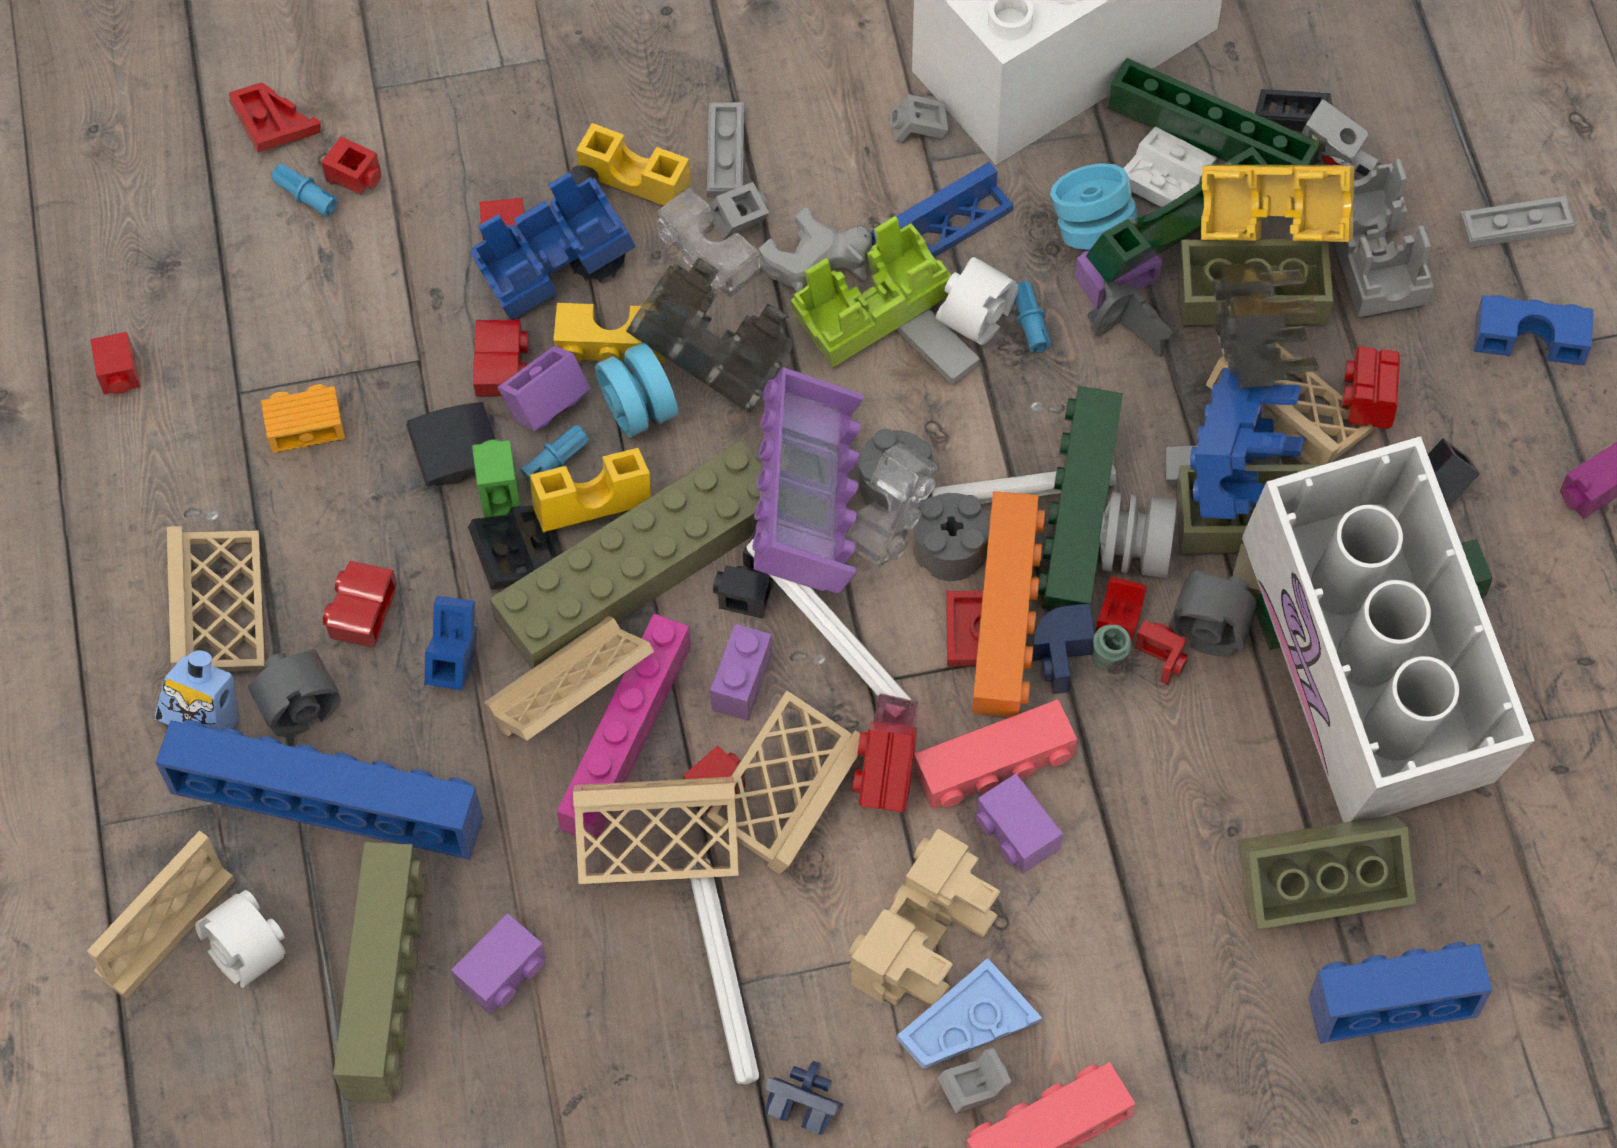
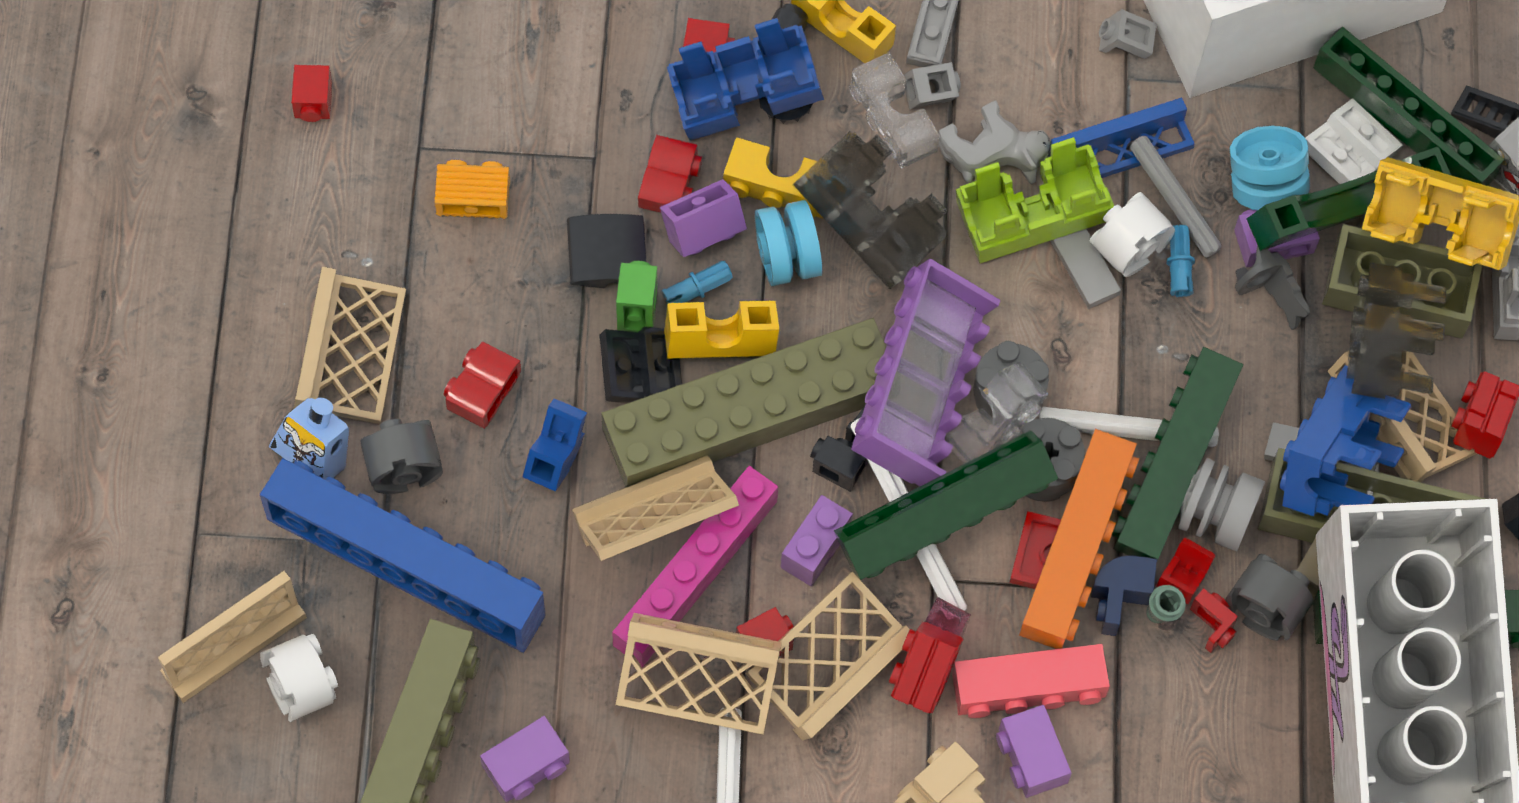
camera: 10 degrees right, 5 degrees up
(864, 600) = (946, 505): none -> dark green brick
(1008, 257) = (1175, 196): none -> light grey axle

